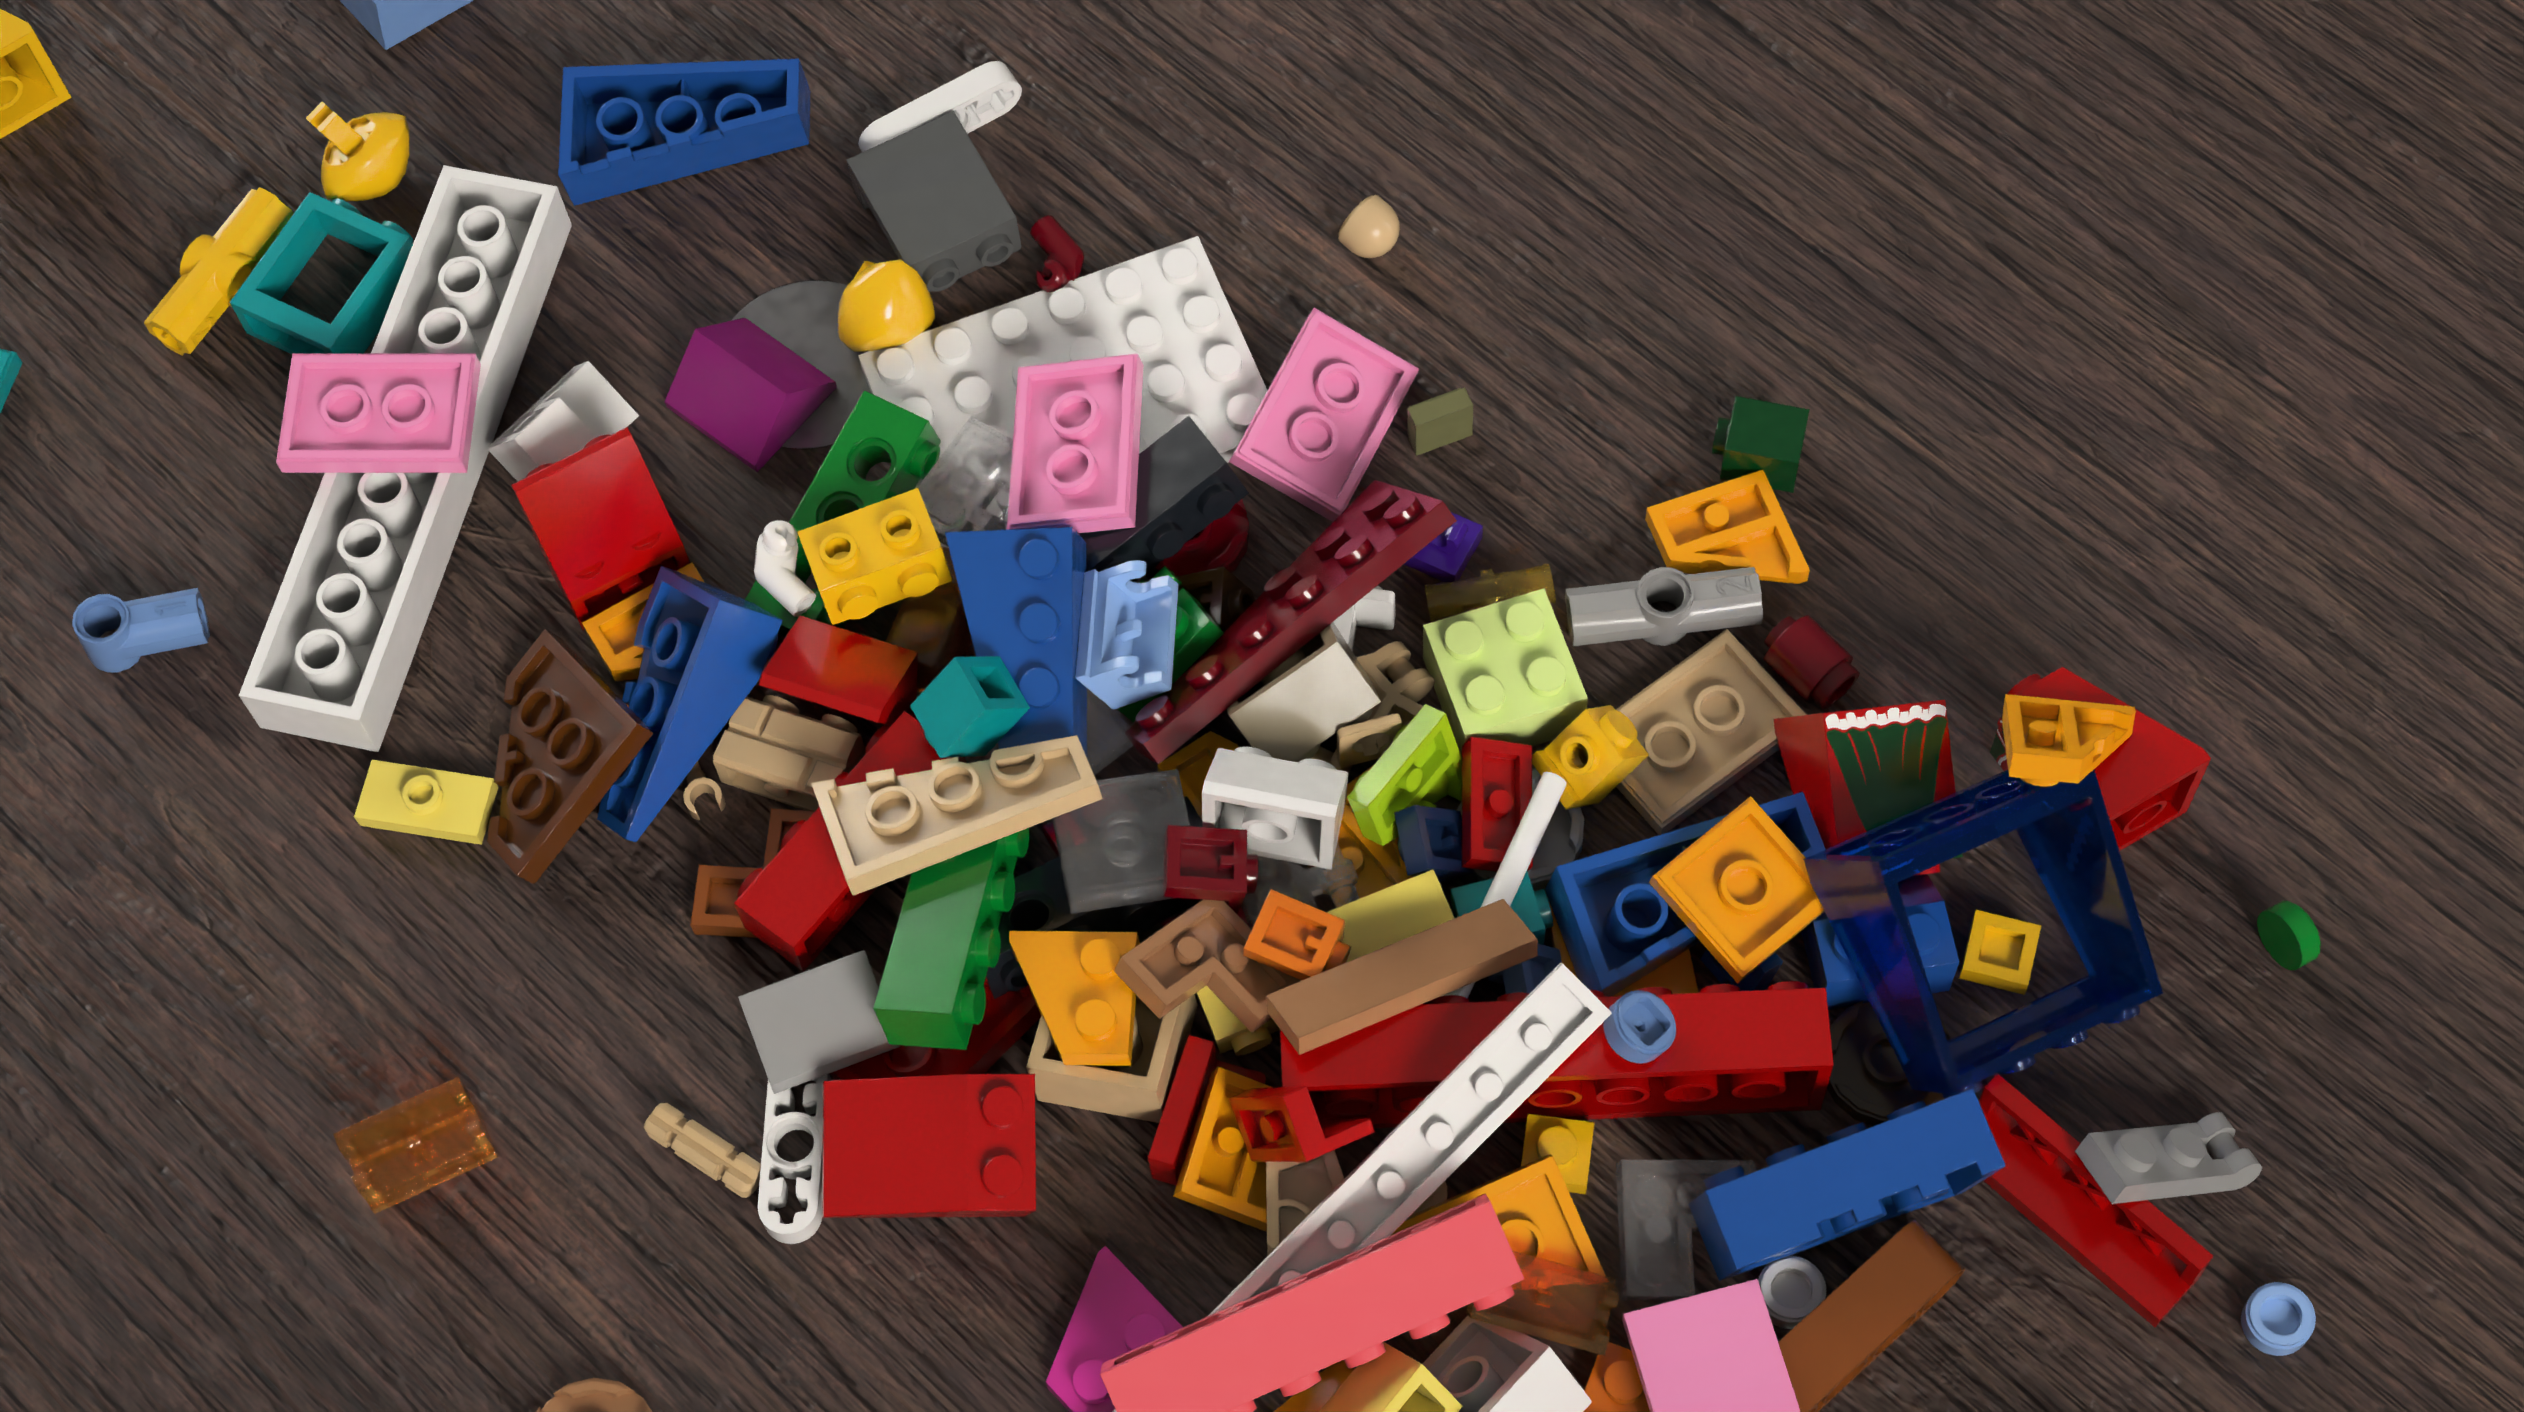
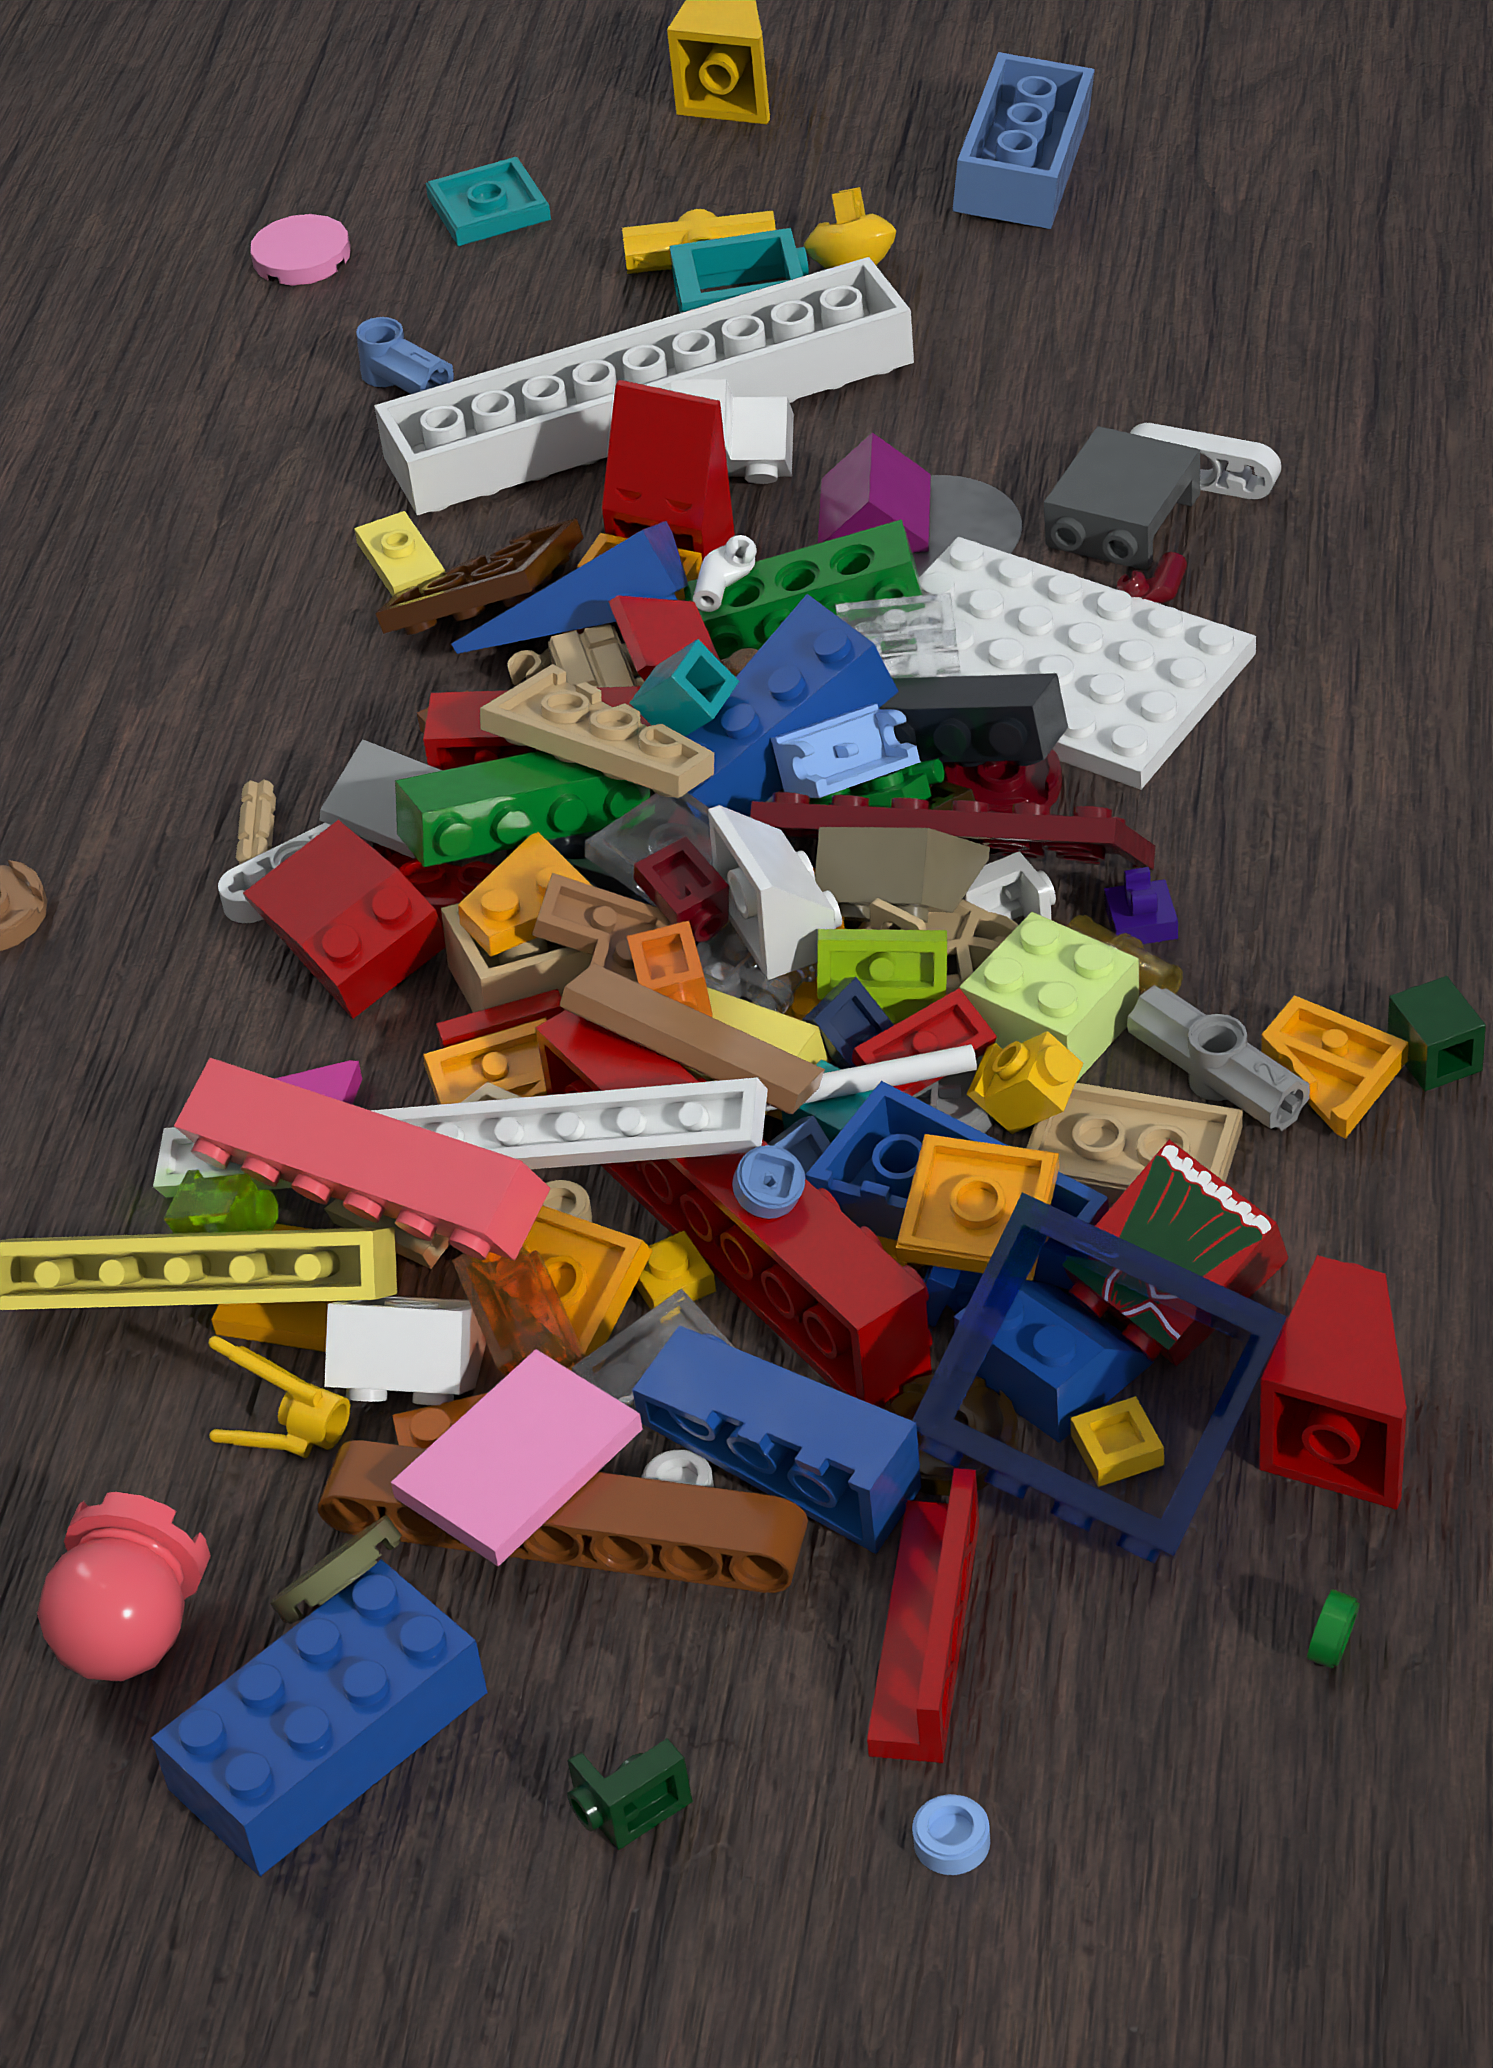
camera: 55 degrees right, 20 degrees down
(379, 413) = (644, 333): bright pink tile -> none
(416, 1145) = (136, 690): clear orange hinge -> none
(674, 121) = (1038, 343): blue wedge -> none
(875, 556) = (758, 587): yellow brick -> none
(884, 307) = (1006, 517): yellow piece -> none
(1076, 445) = (976, 642): bright pink tile -> none
(1284, 1126) = (510, 1052): red panel -> none
(1324, 415) = (1181, 778): bright pink tile -> none
(1370, 228) = (1370, 712): tan piece -> none
(1440, 421) = (1241, 844): olive tile -> none
(1810, 660) = (1266, 1167): dark red brick -> none
(2061, 738) = (1293, 1279): light orange wing -> none
(2168, 1160) = (1012, 1643): light grey plate -> none

